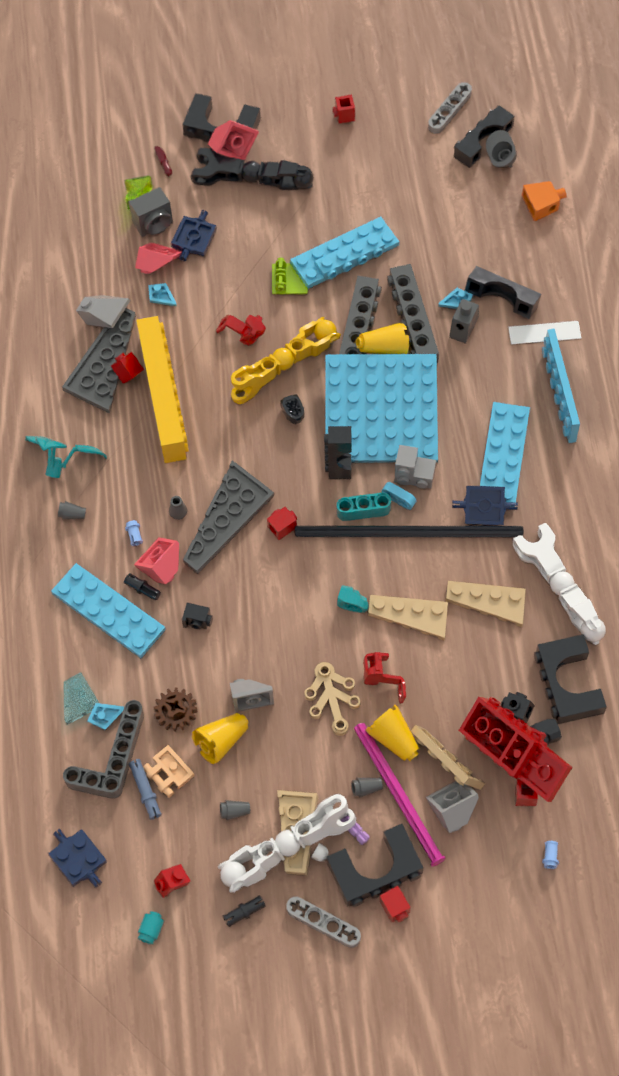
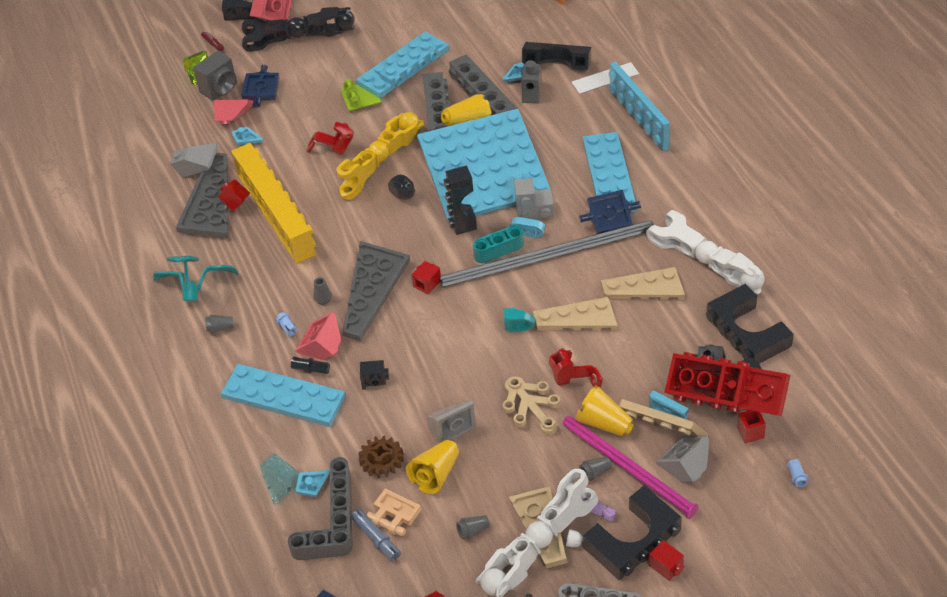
camera: 15 degrees left, 15 degrees down
(457, 745) = (666, 405): none -> medium azure tile

